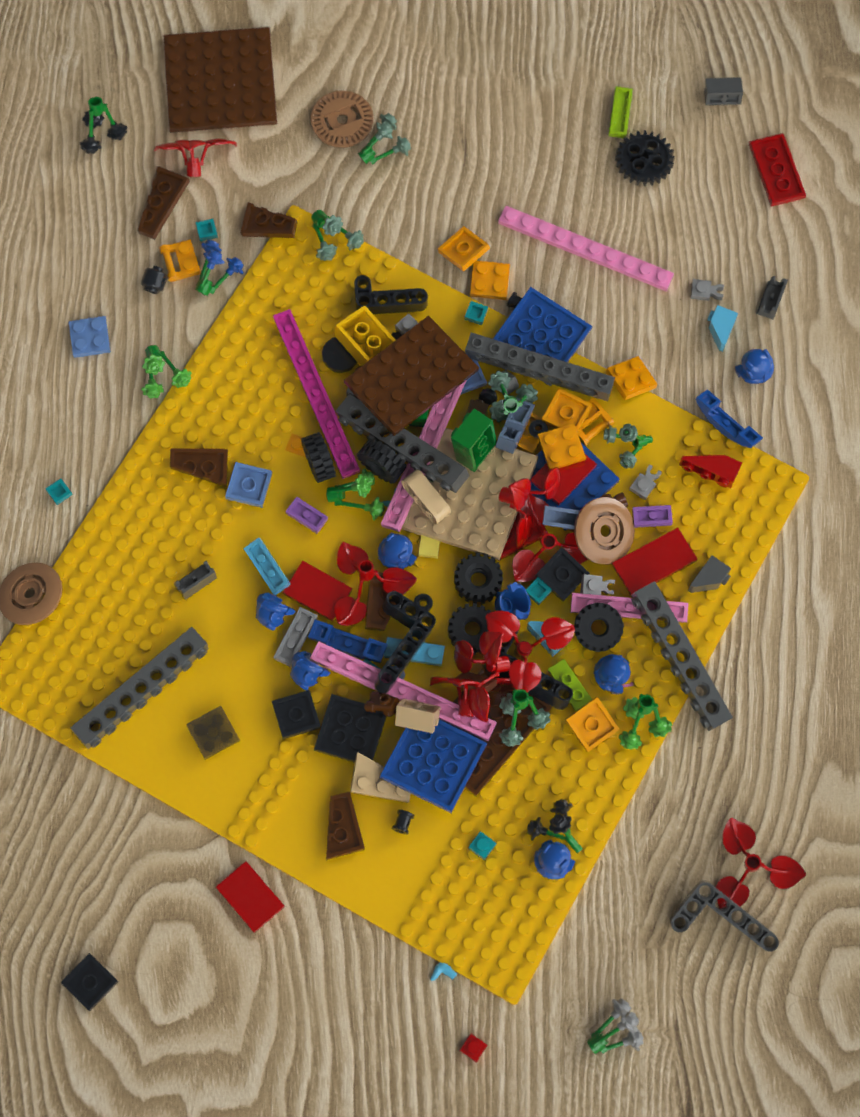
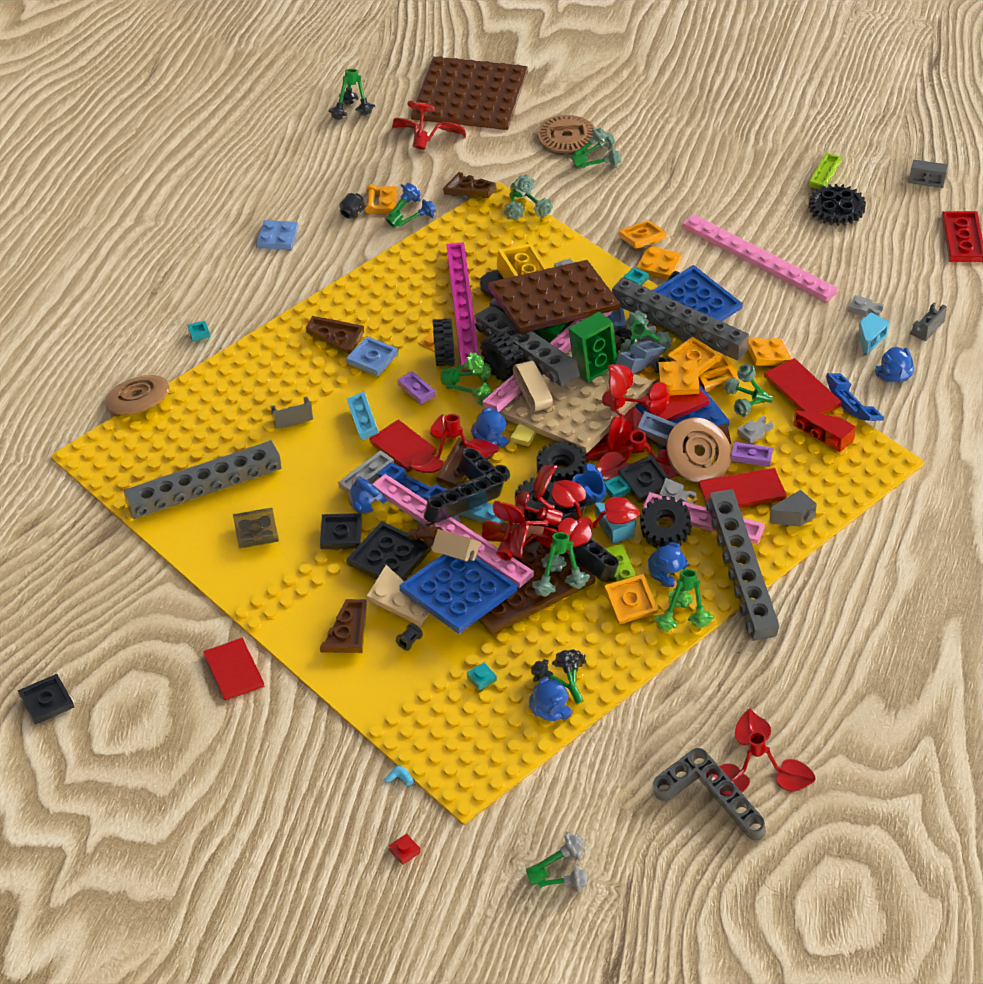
camera: 20 degrees right, 25 degrees down
(153, 364) = (327, 254): bright green plant -> none
(165, 194) = (386, 156): reddish brown wing -> none
(206, 230) = (416, 180): teal plate -> none
(271, 610) = (349, 444): blue helmet -> none
(390, 296) = (555, 252): black beam -> none
(676, 419) = (802, 388): none -> red tile

